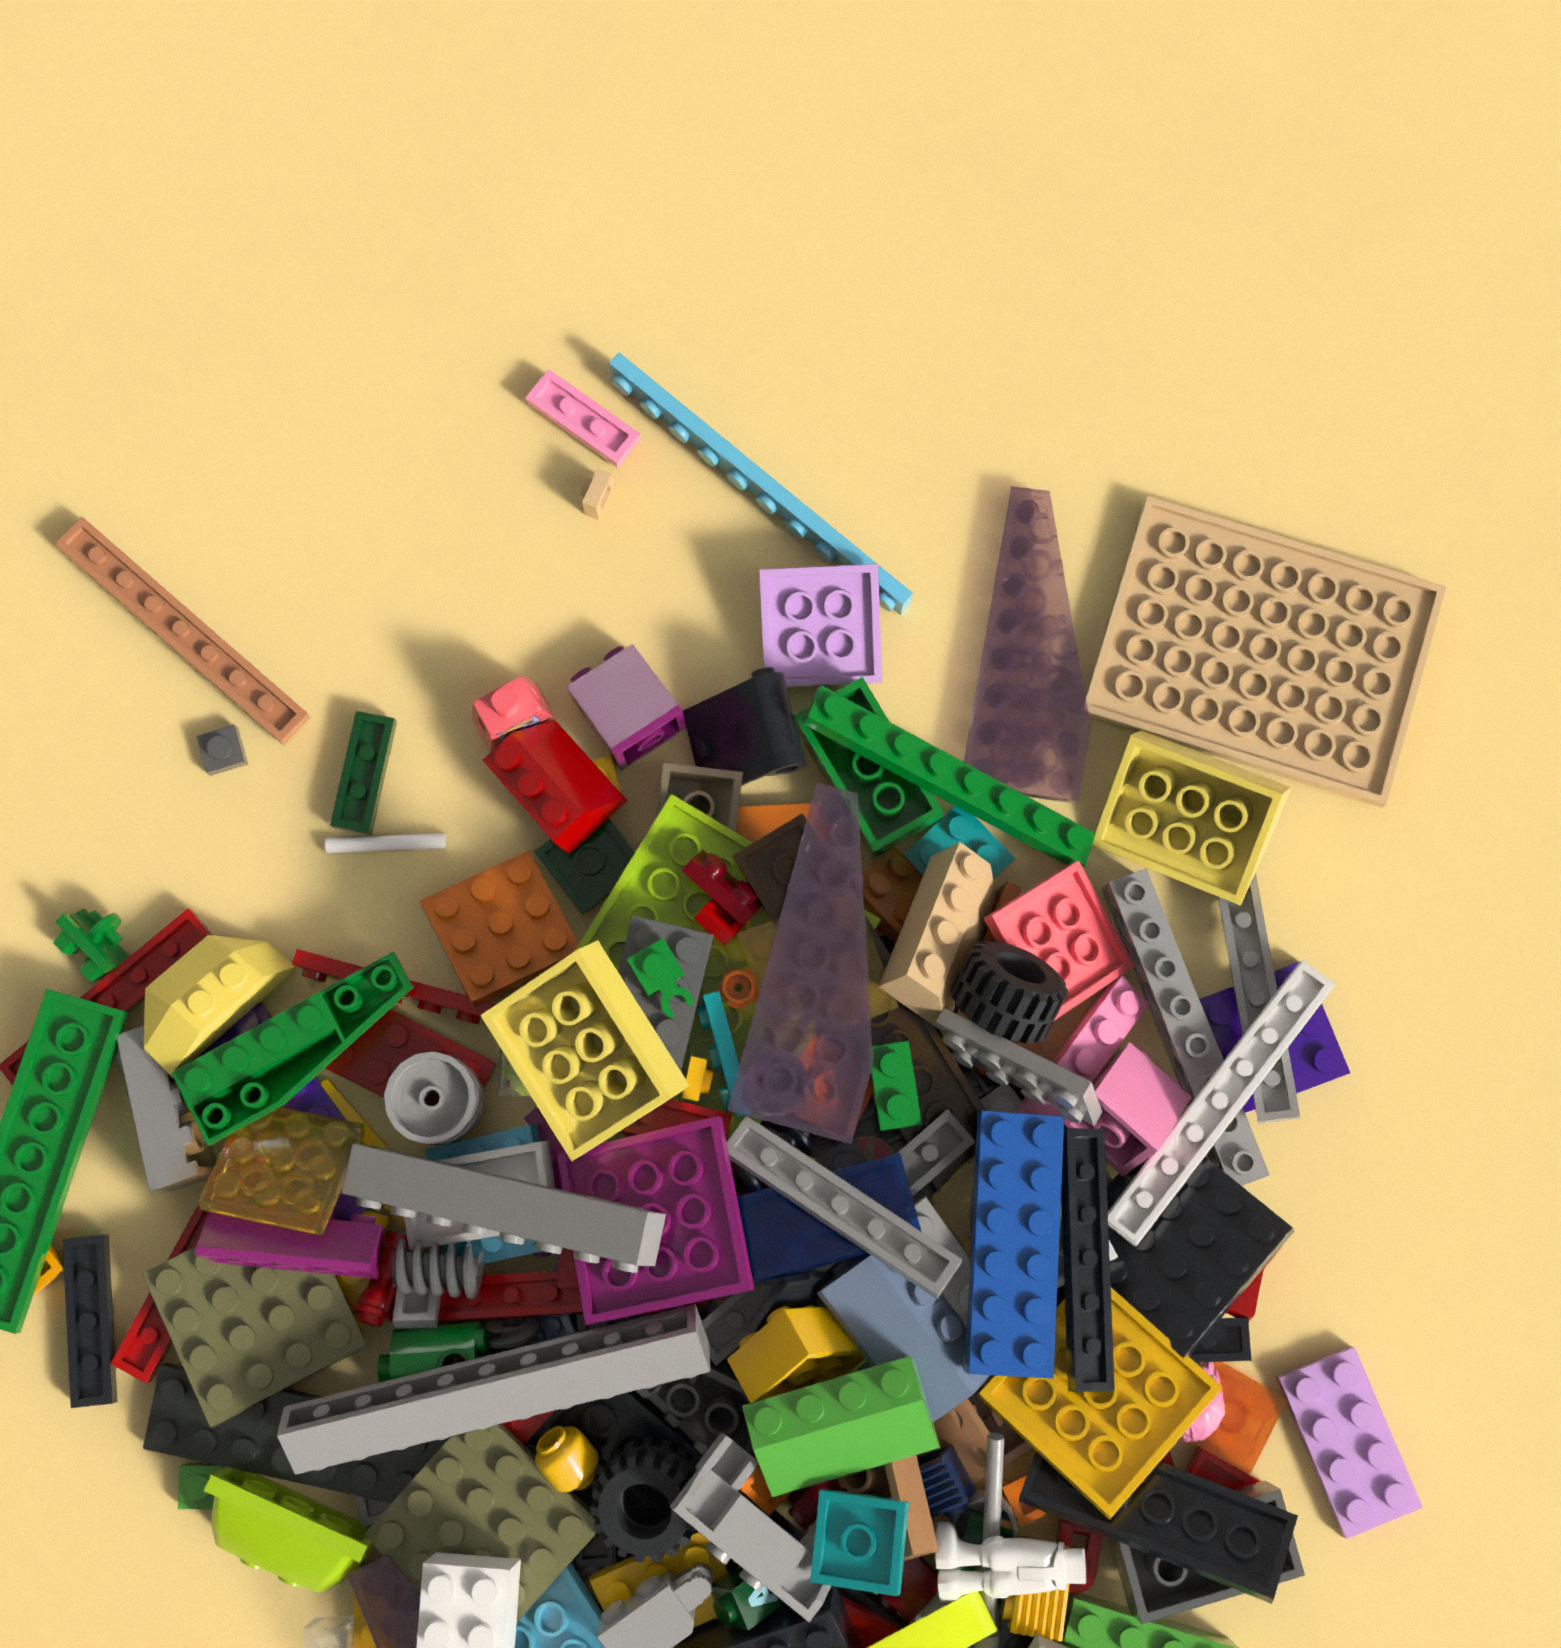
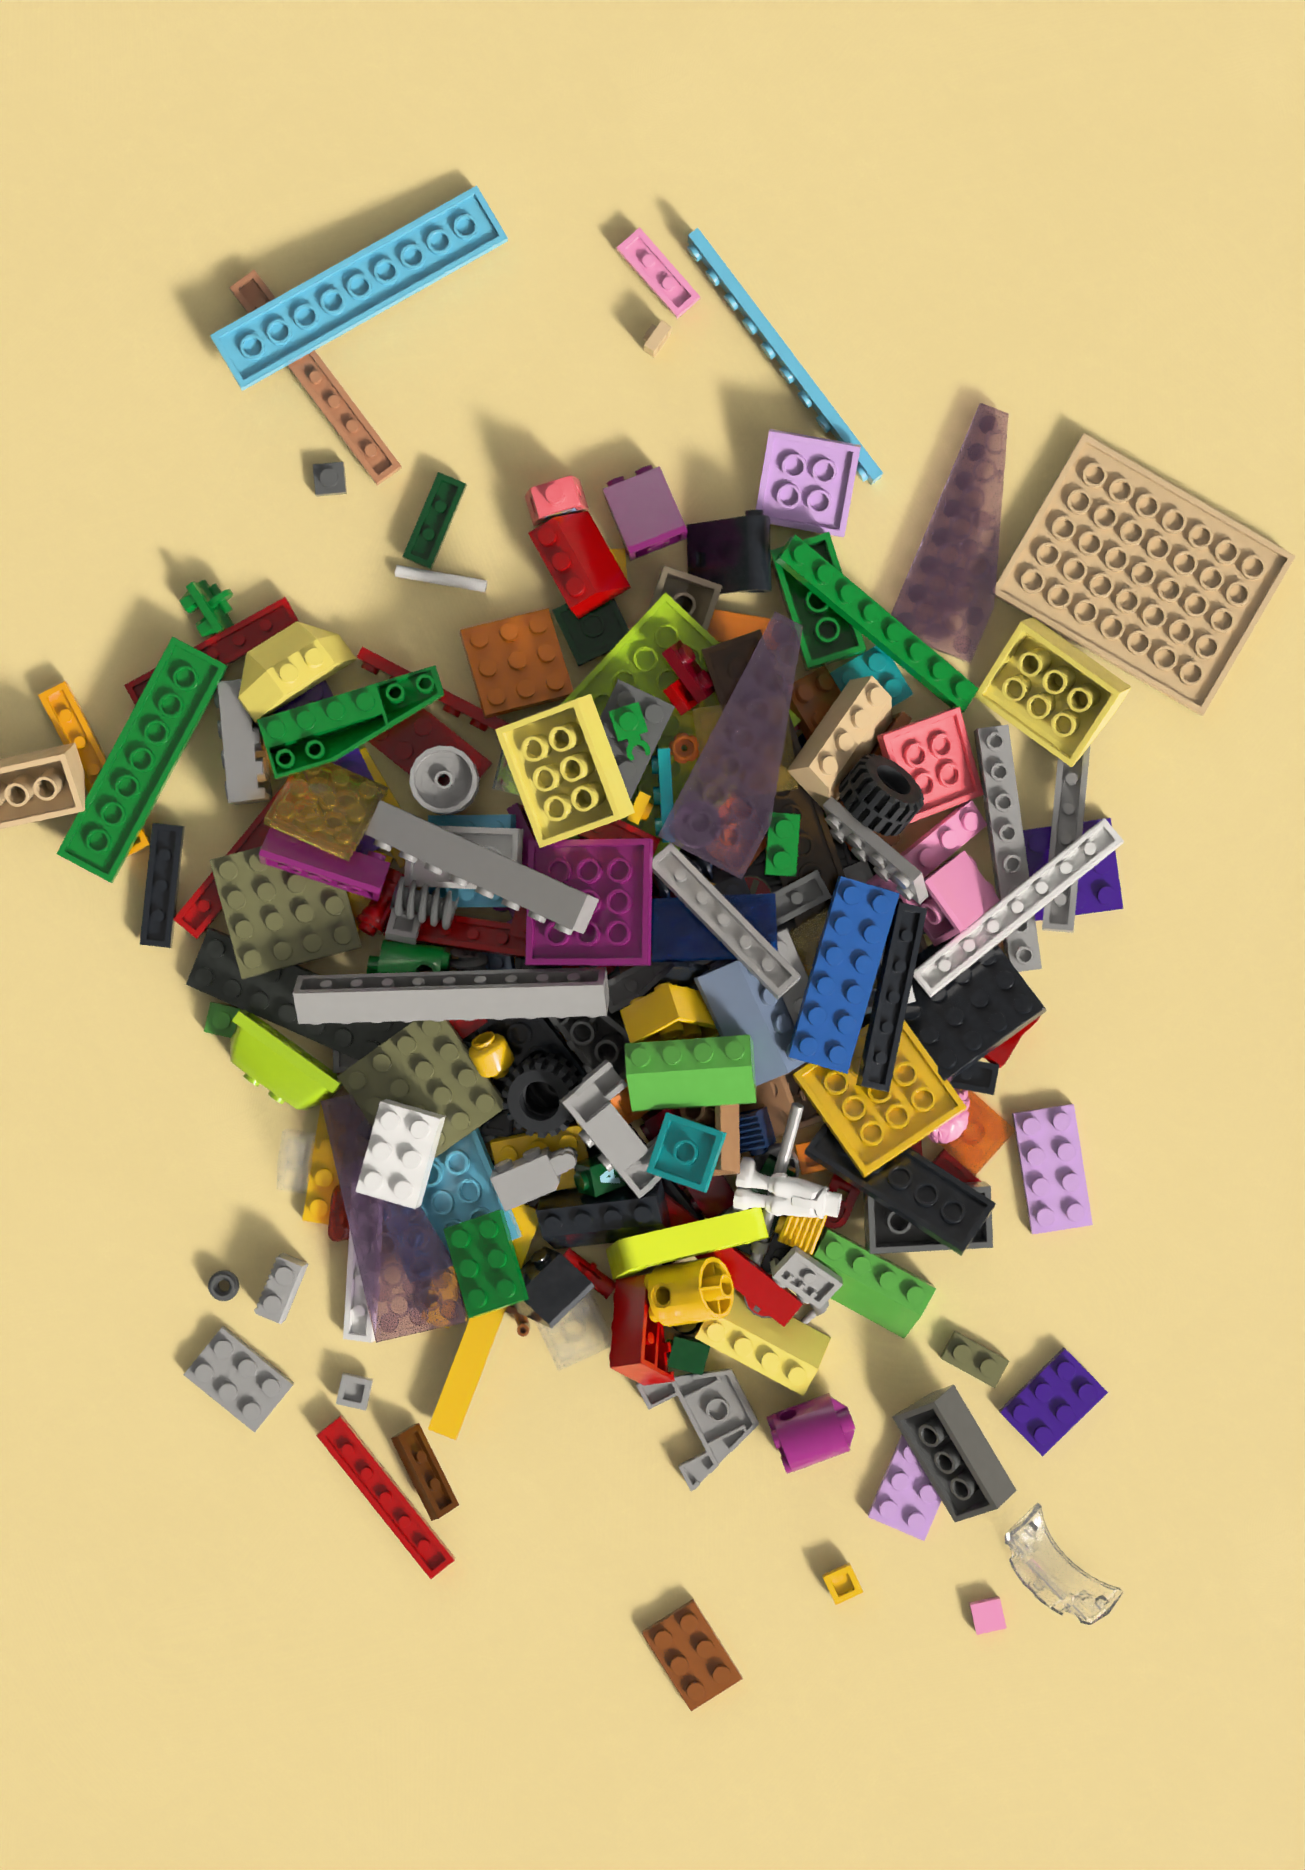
camera: 15 degrees right, 10 degrees up
(212, 512) = (359, 288): none -> medium azure plate

